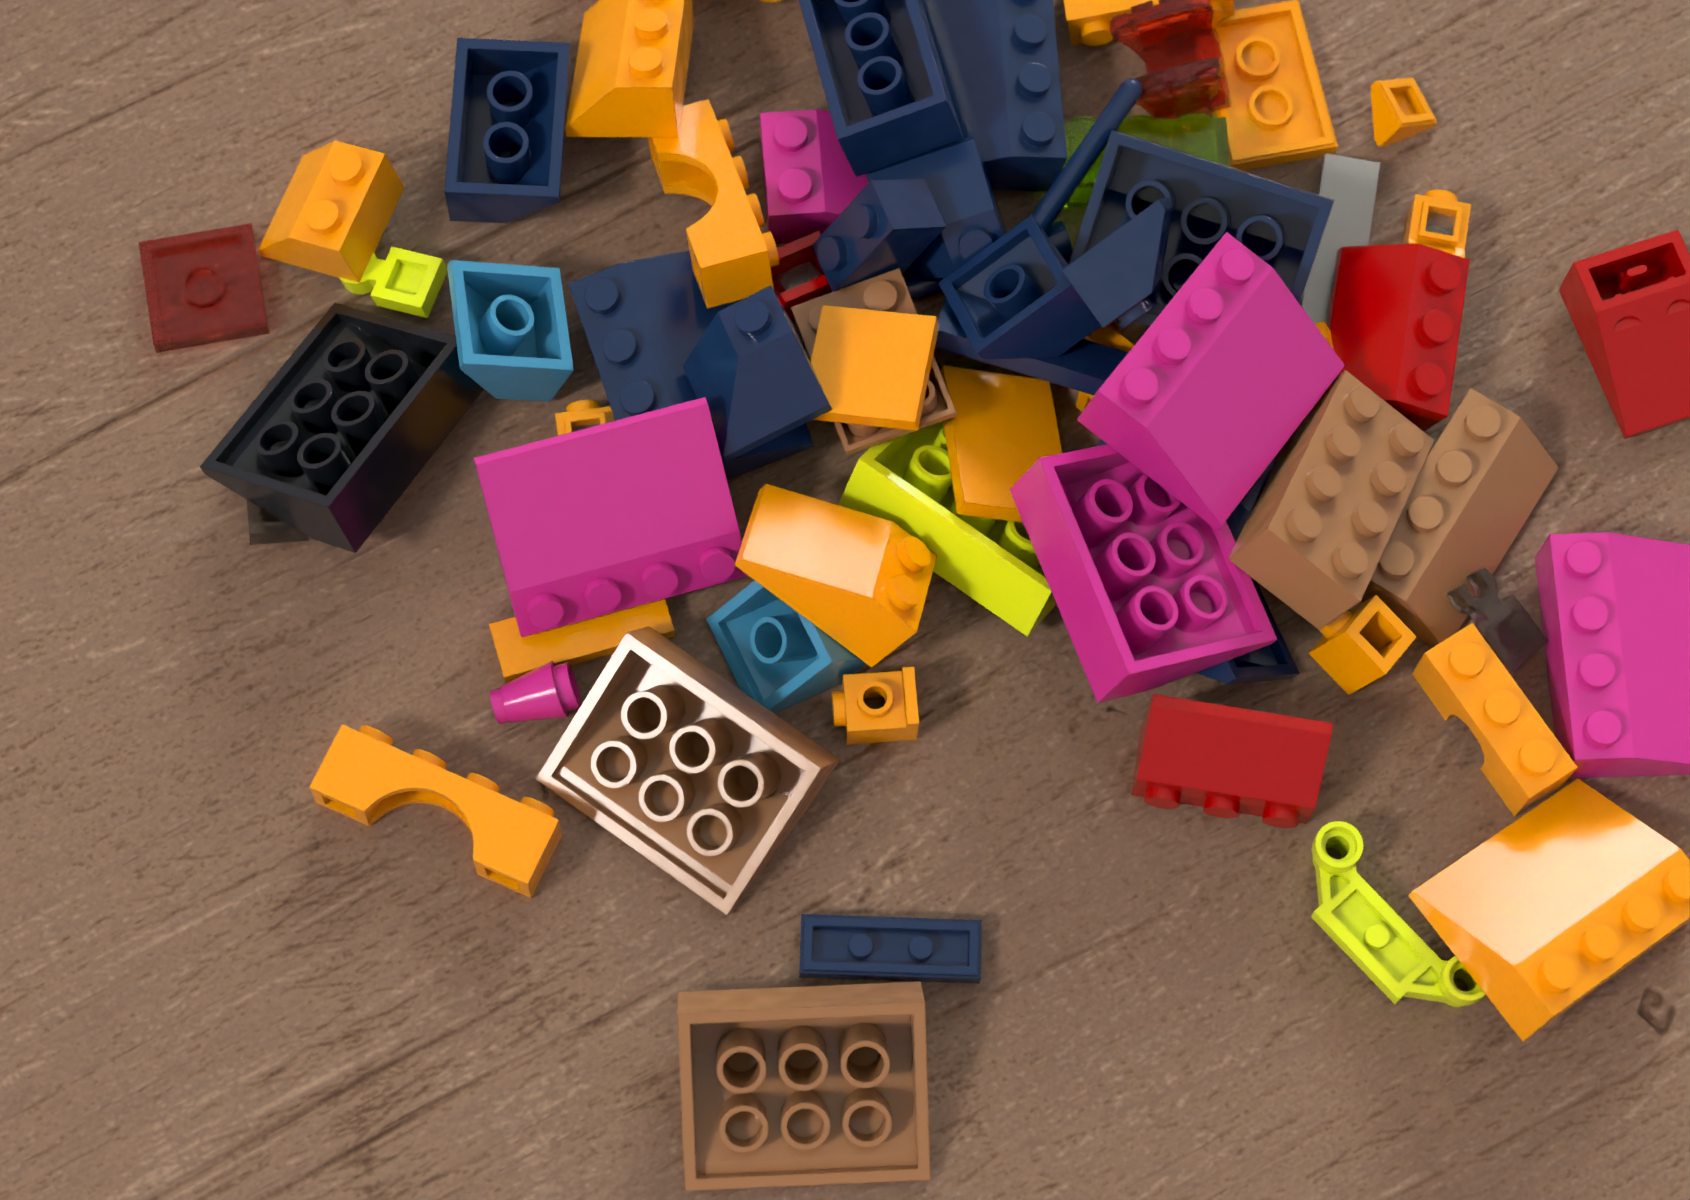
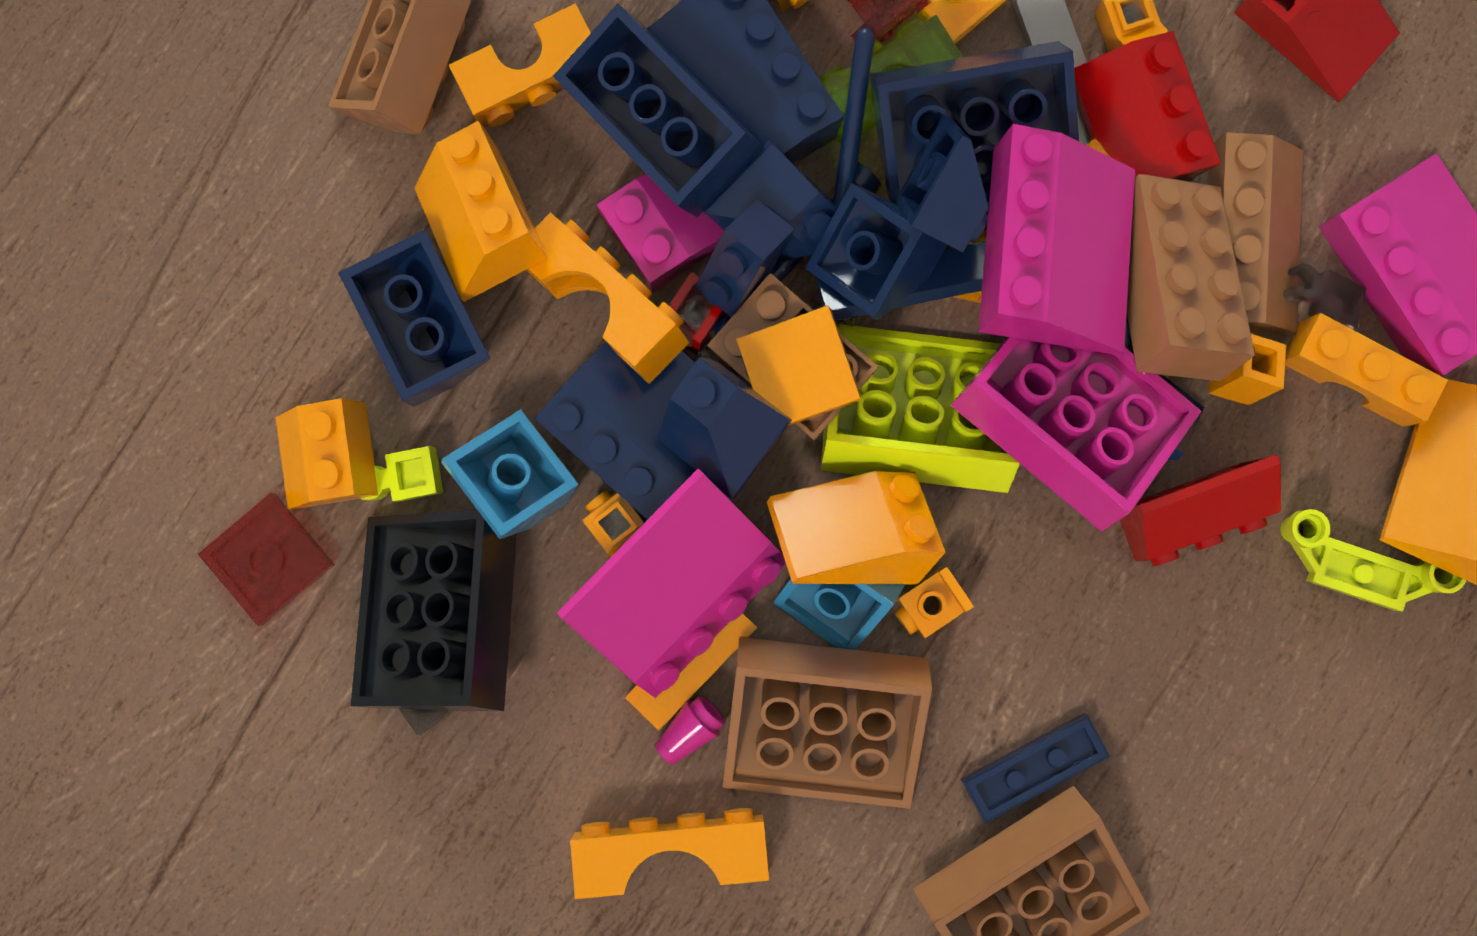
camera: 35 degrees left, 15 degrees up
(996, 437) = (917, 363): light orange tile -> none

